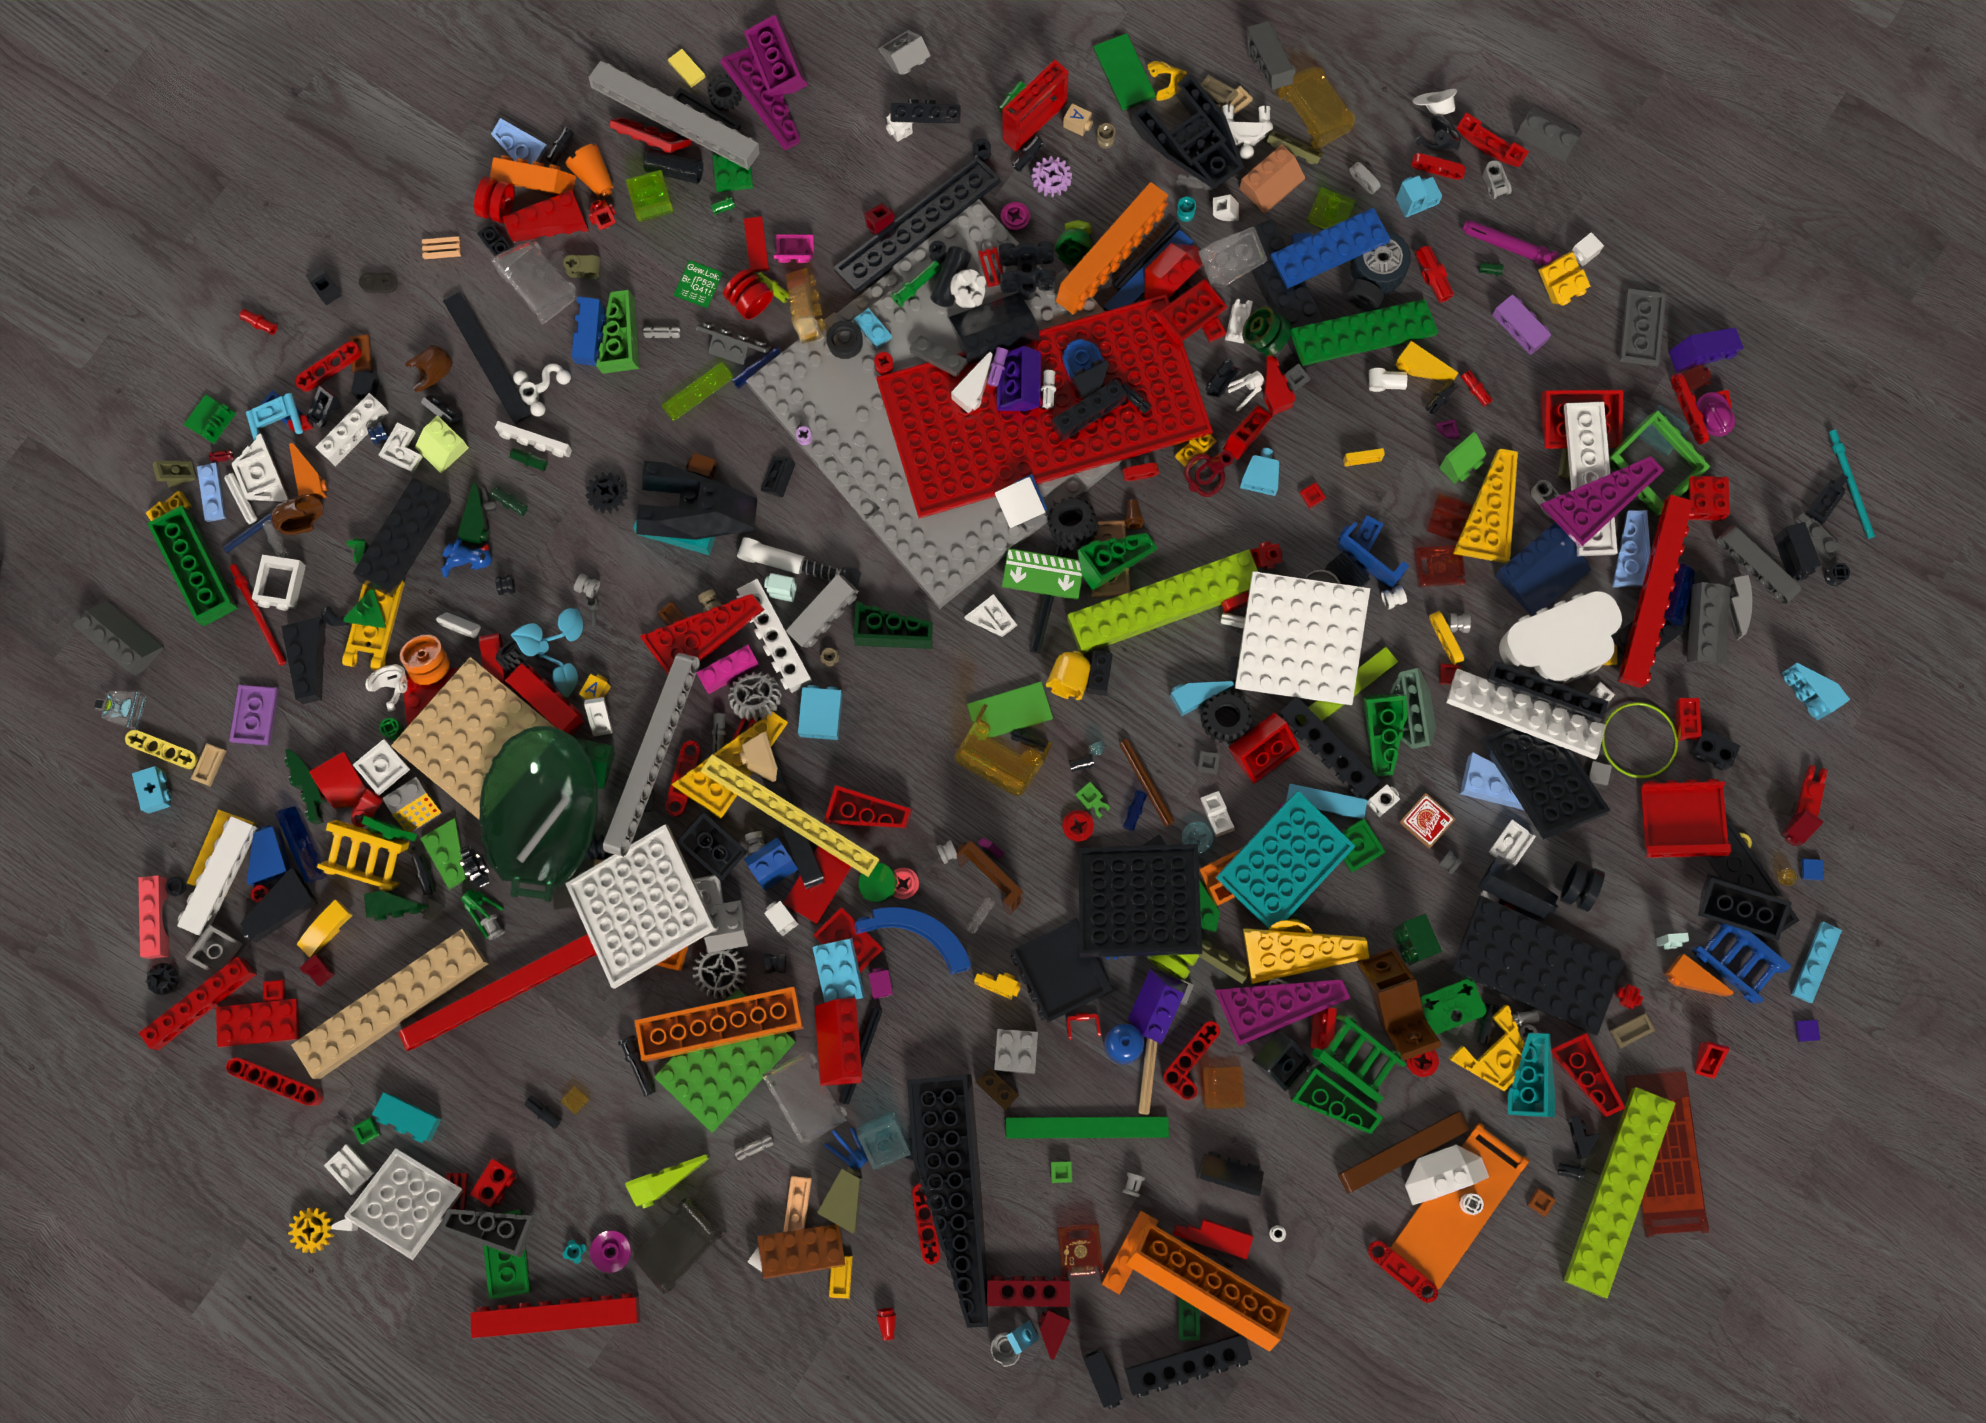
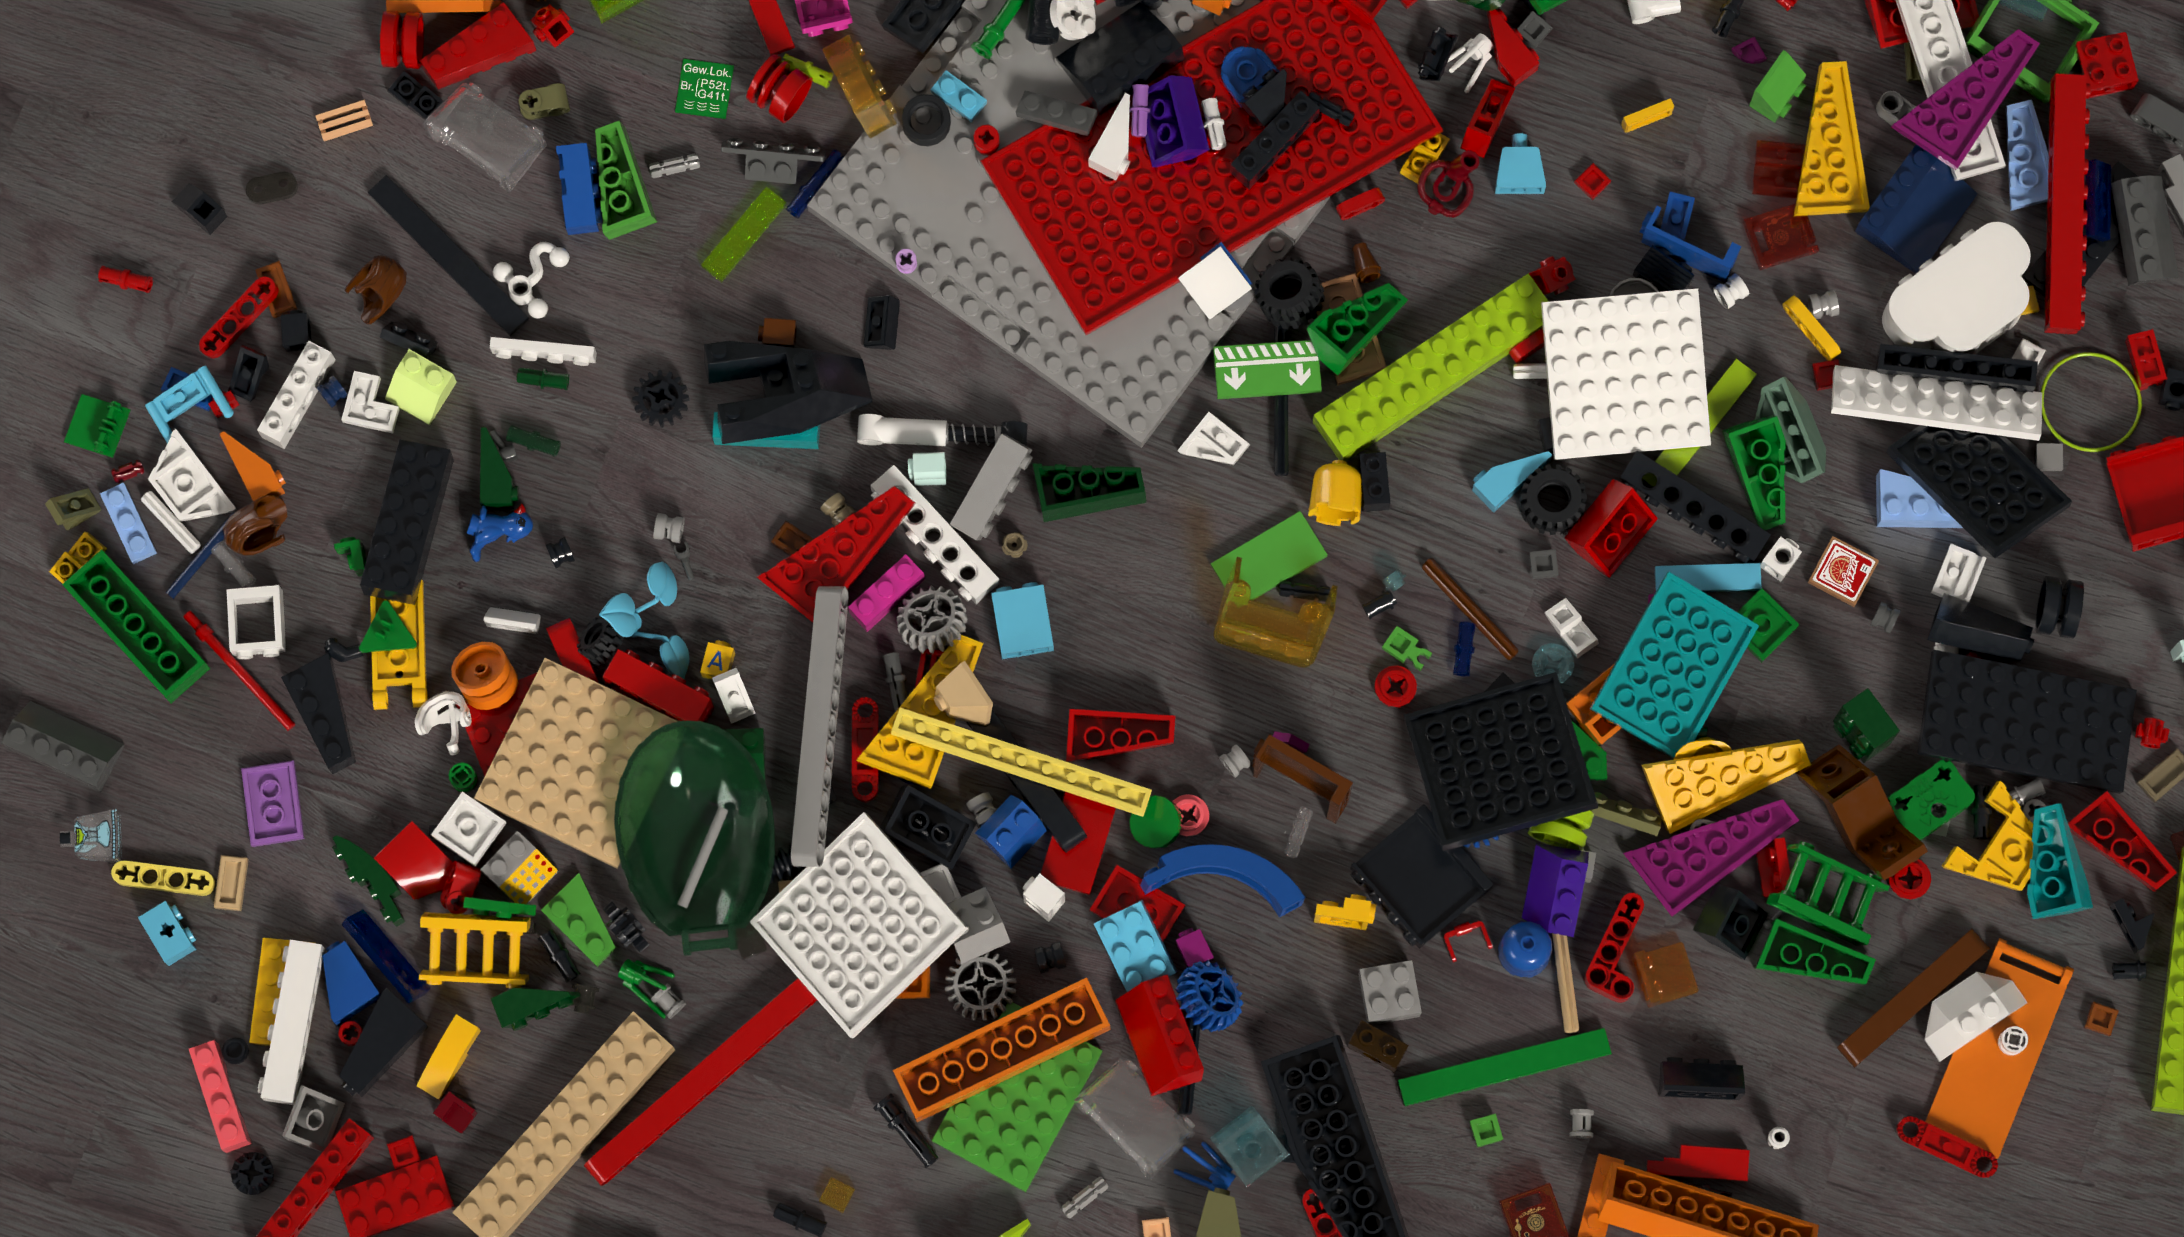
camera: 15 degrees left, 0 degrees up
(887, 1021) = (1209, 996): none -> blue gear

